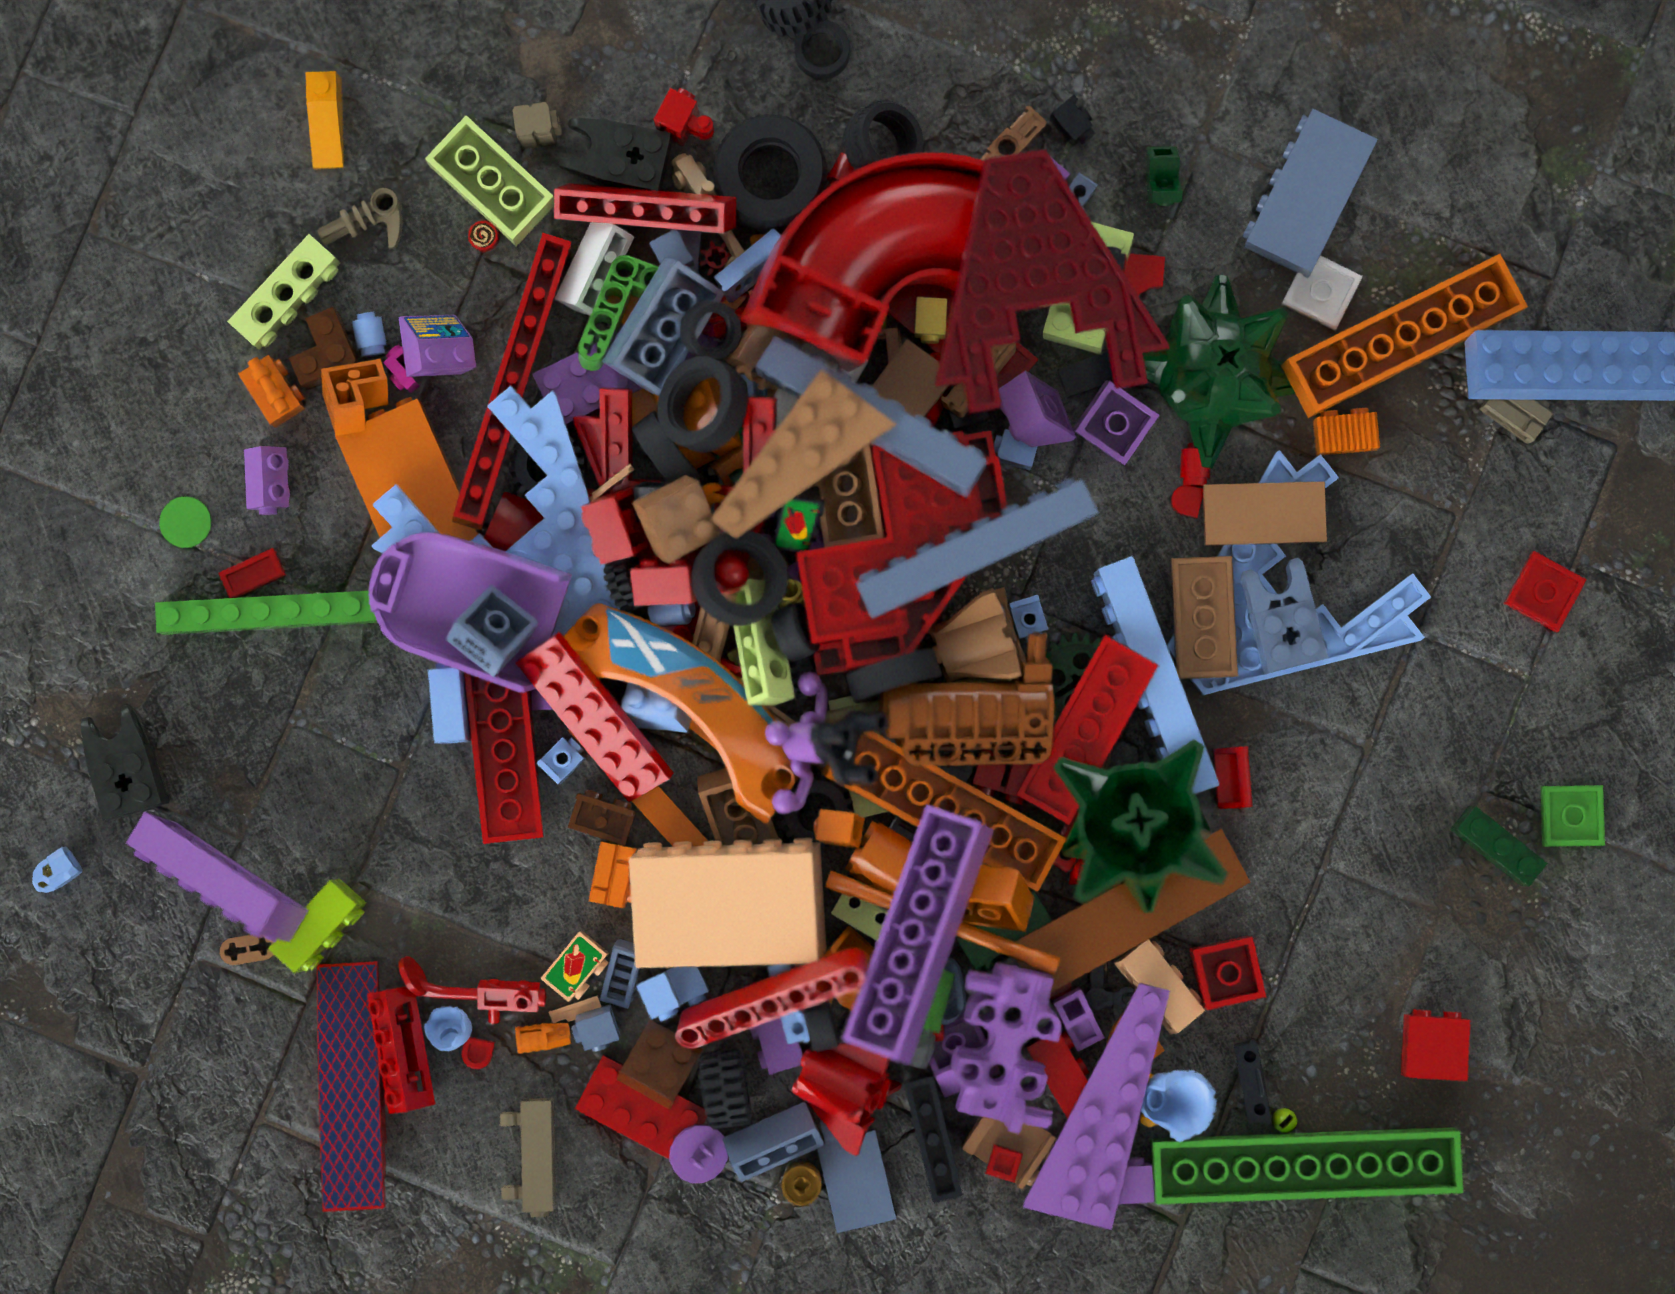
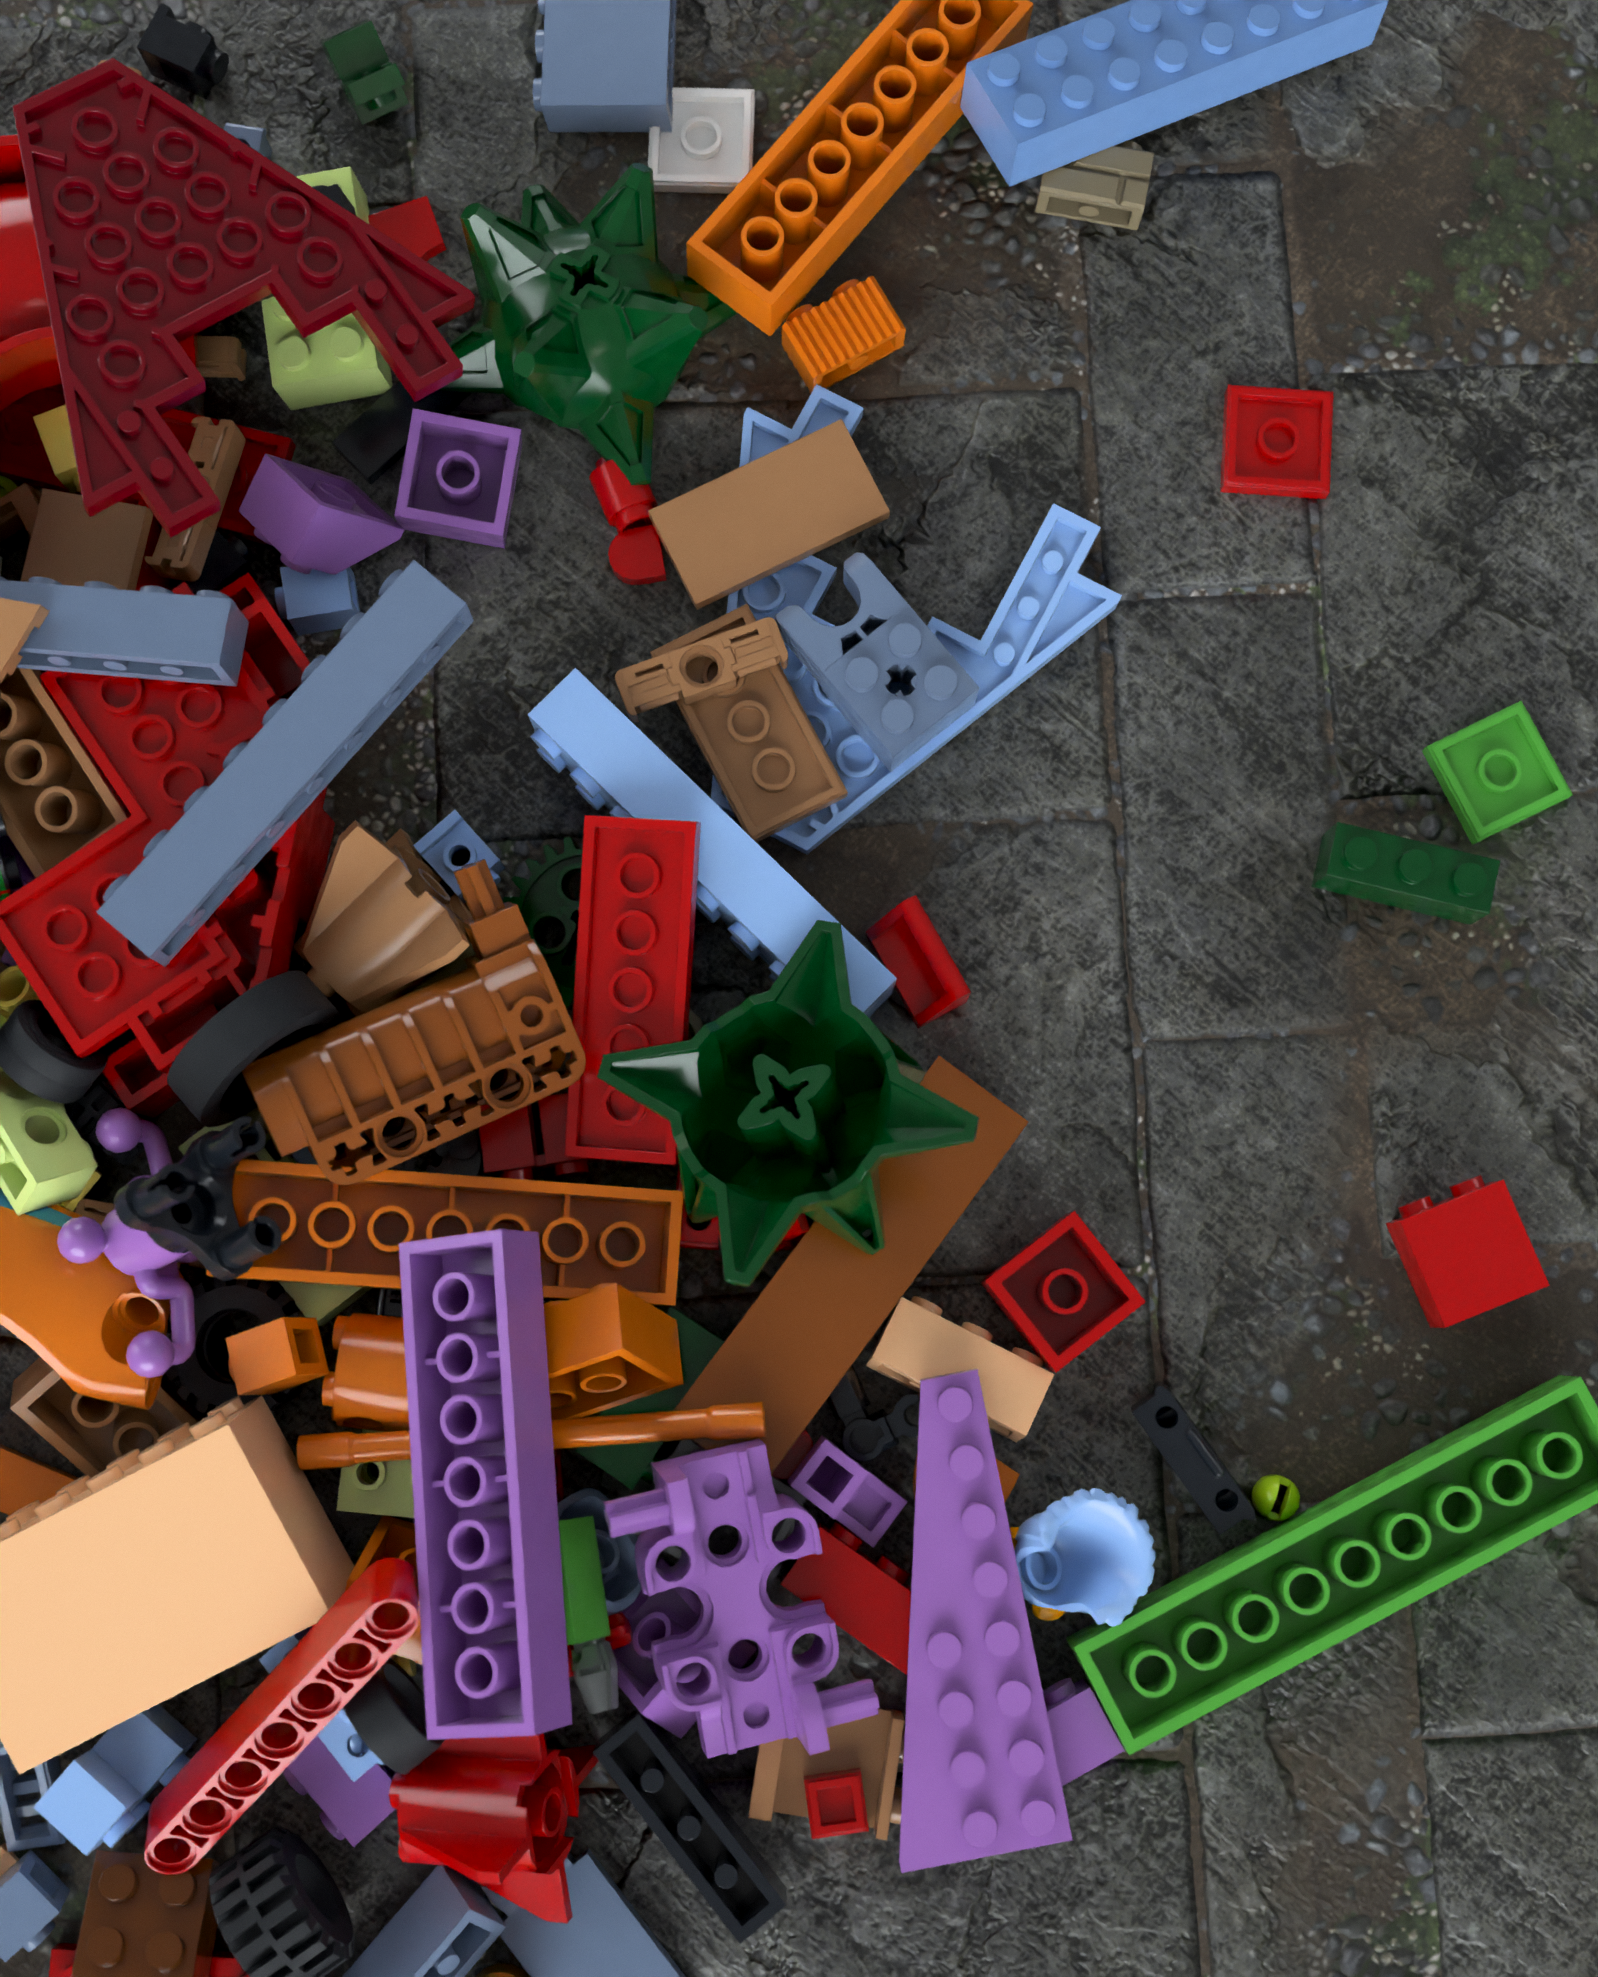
camera: 30 degrees left, 5 degrees down
(1214, 580) = (734, 652): none -> medium nougat piece

